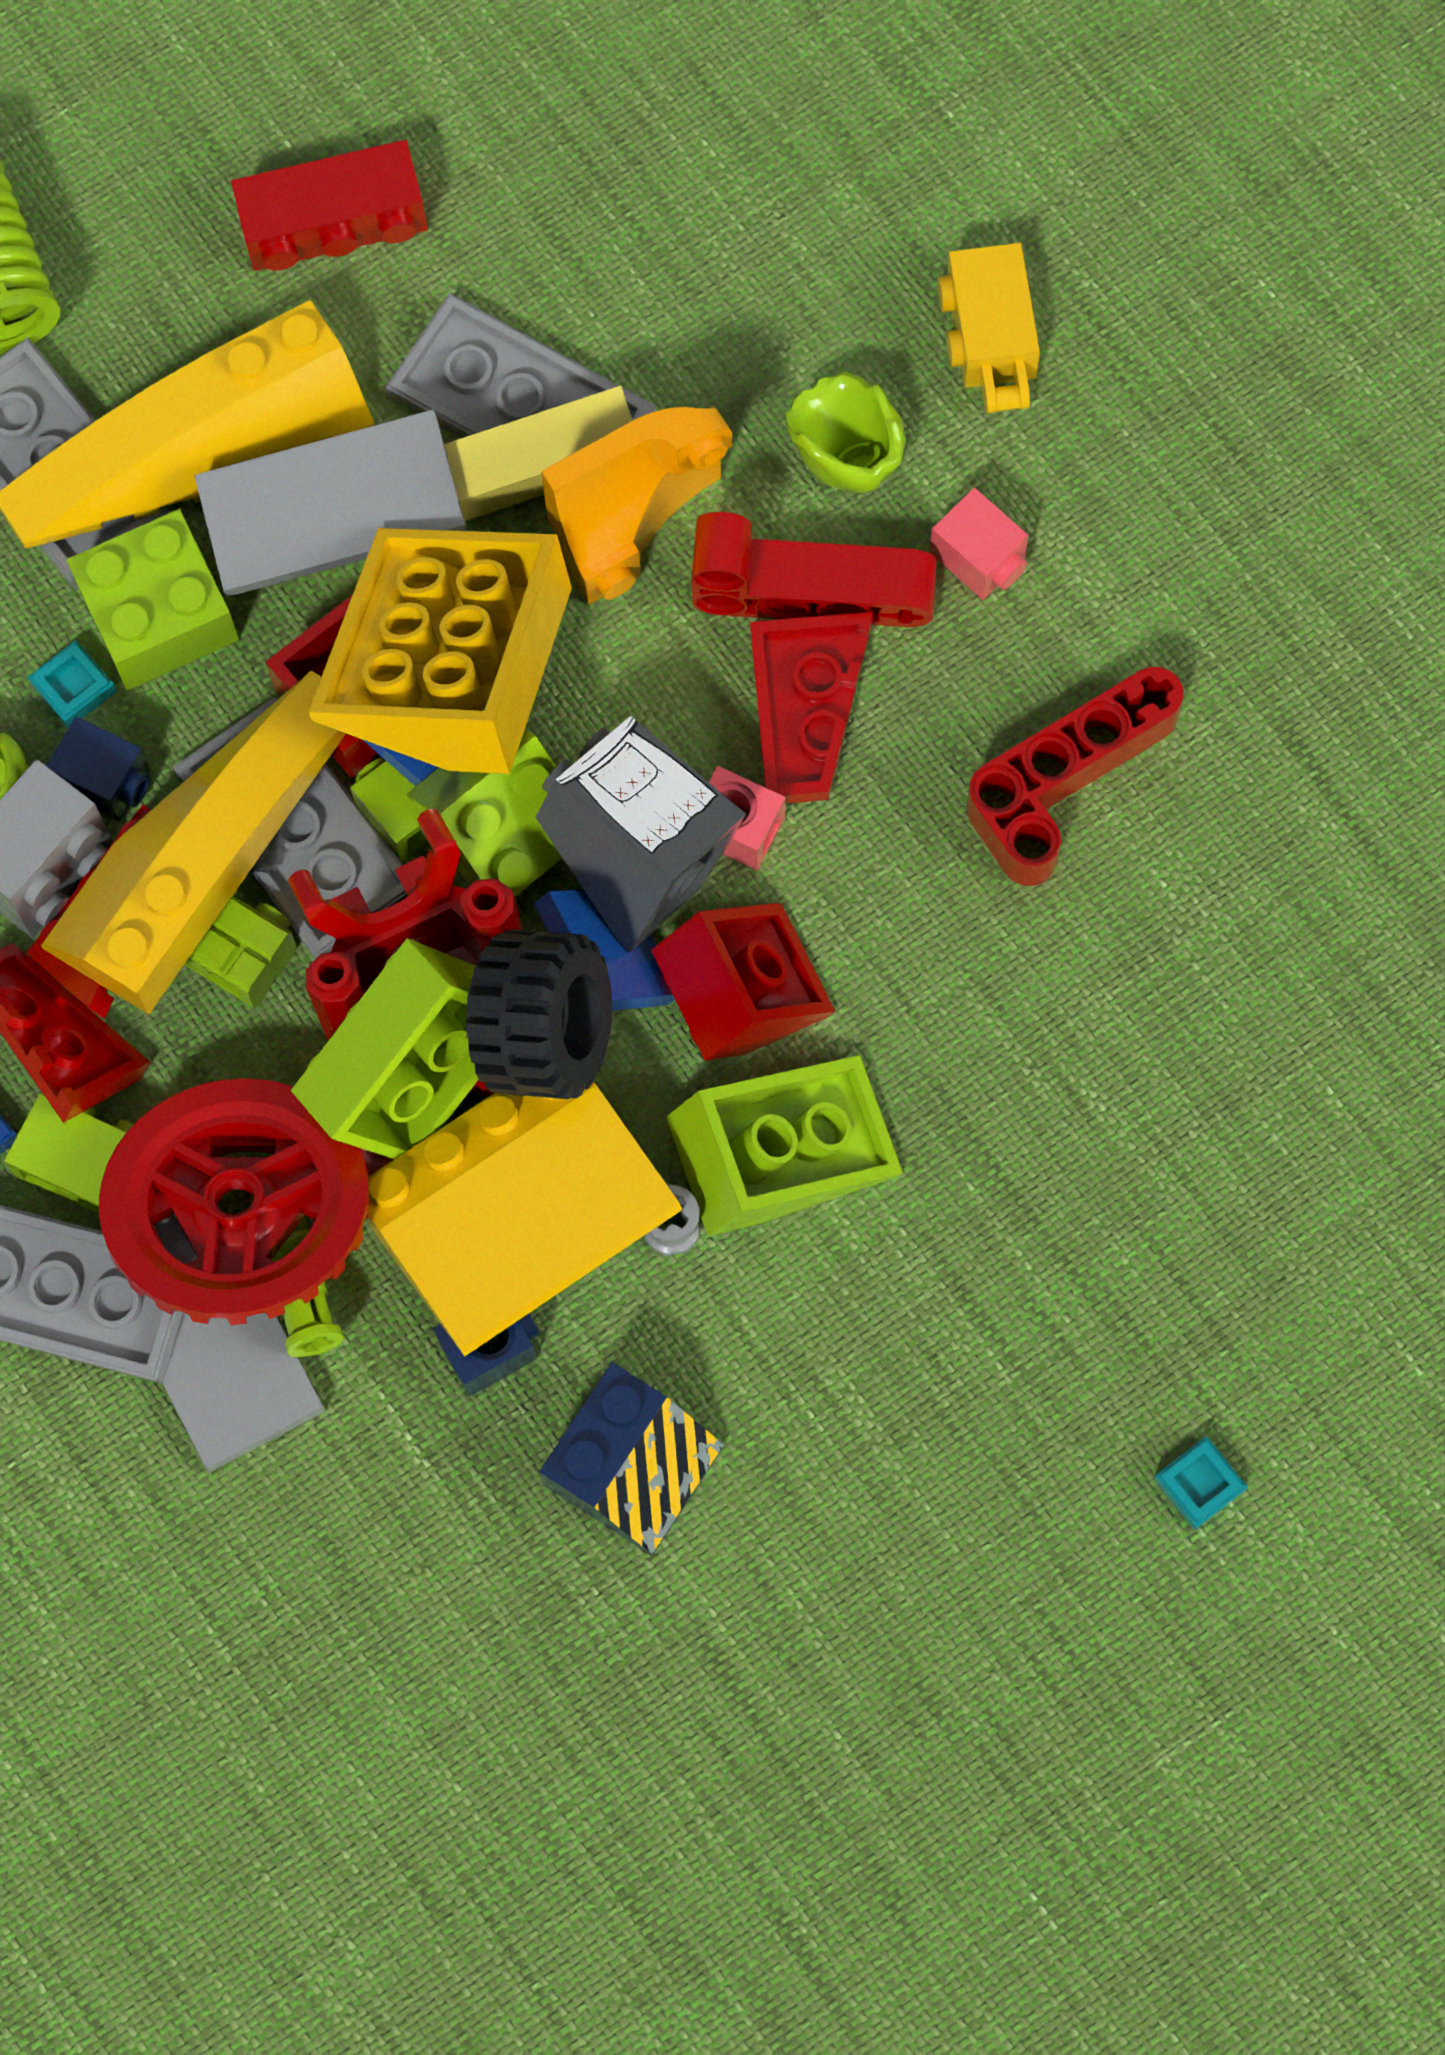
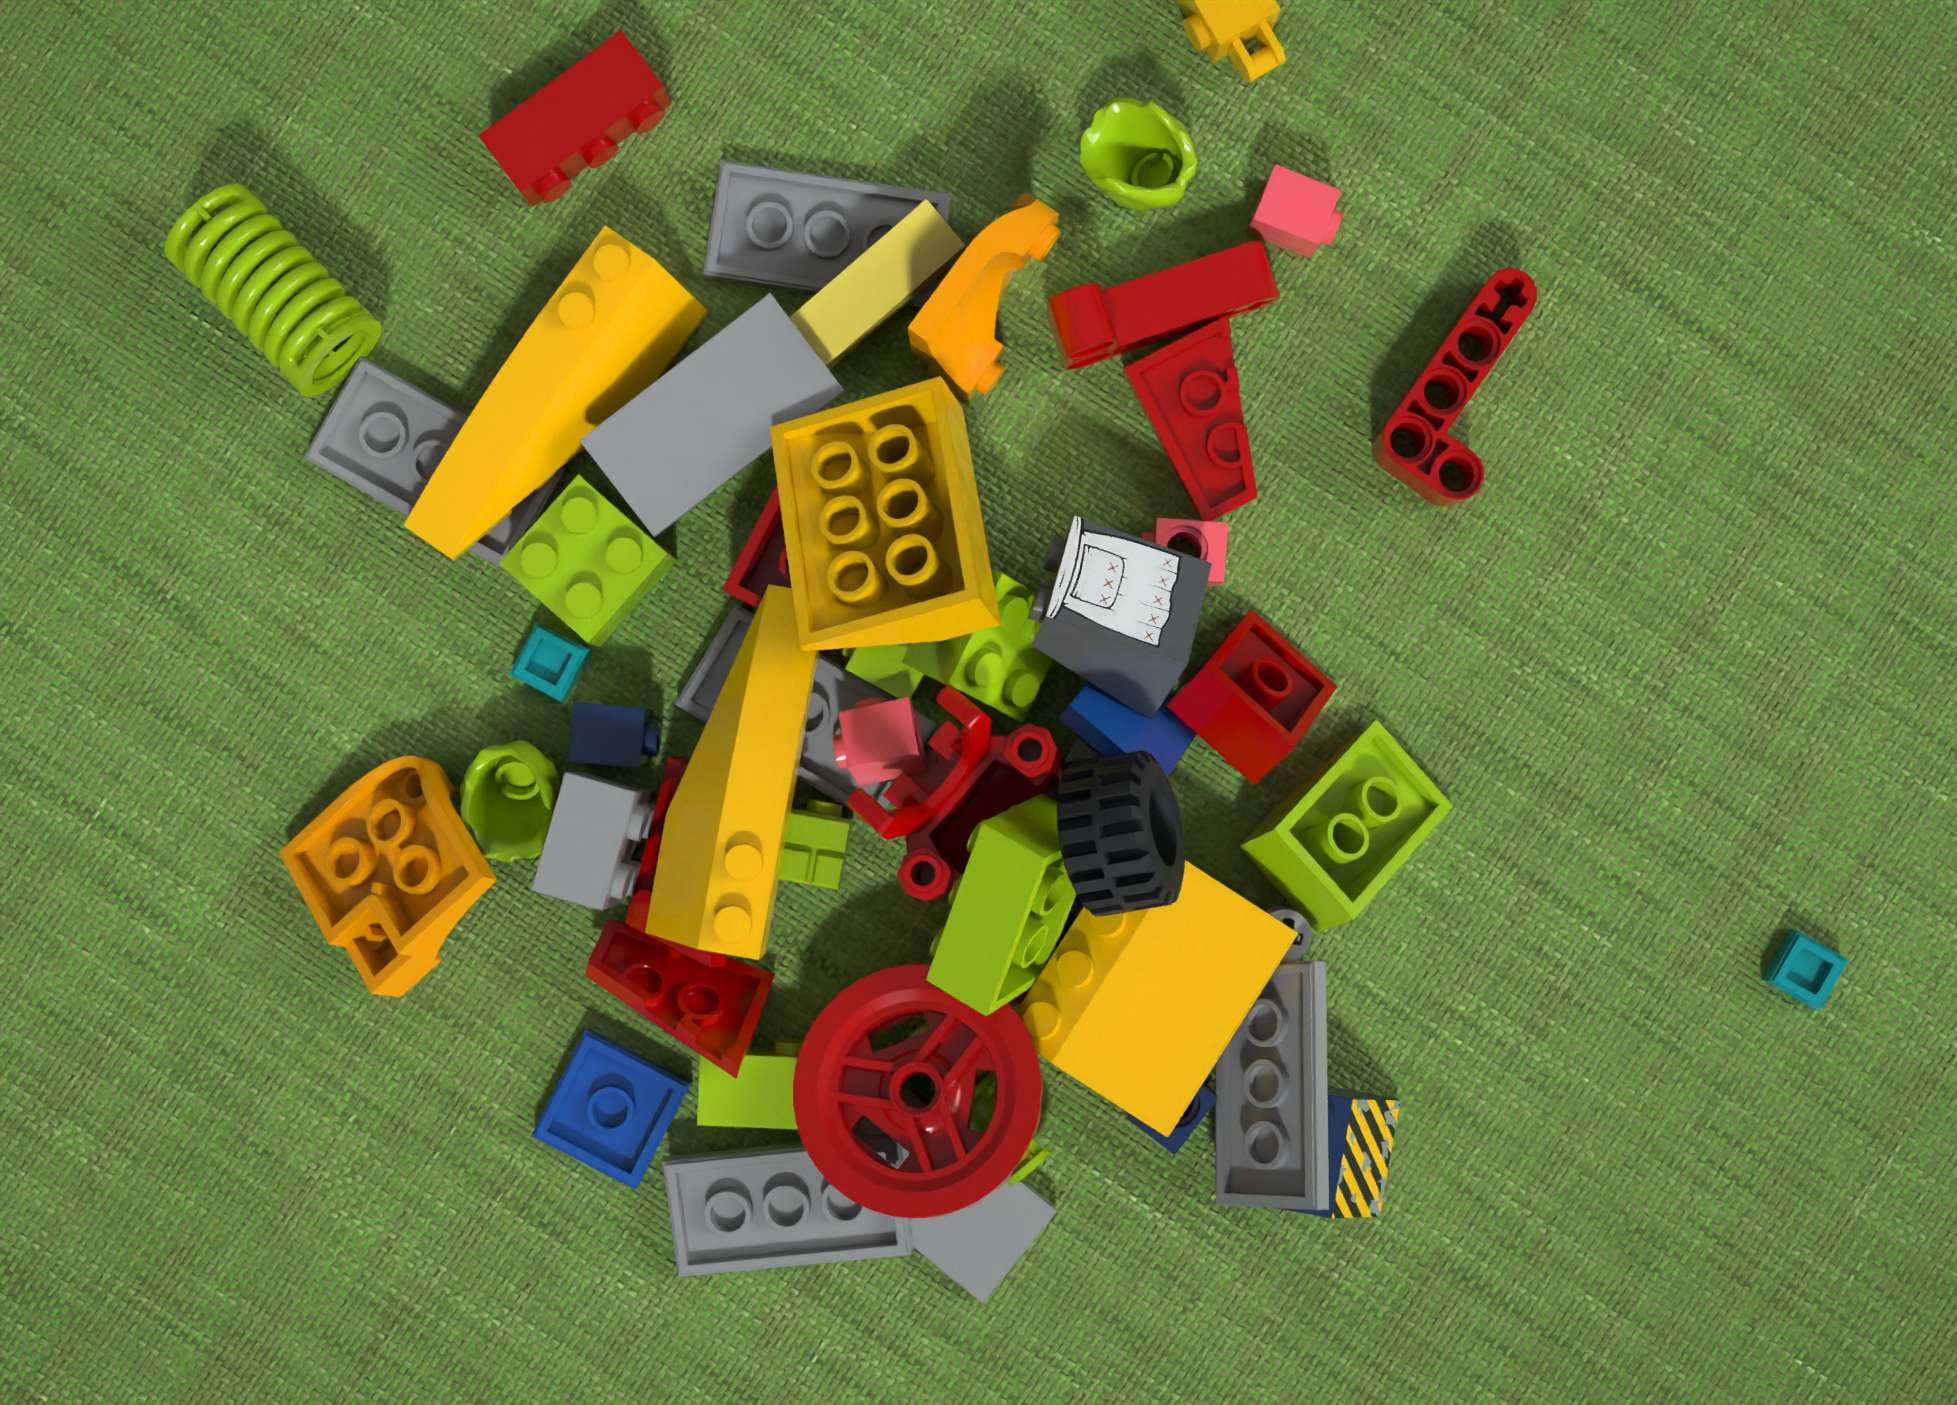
camera: 30 degrees left, 15 degrees up
(353, 857) = (880, 740): none -> coral brick
(590, 1358) = (1276, 1097): none -> light grey tile

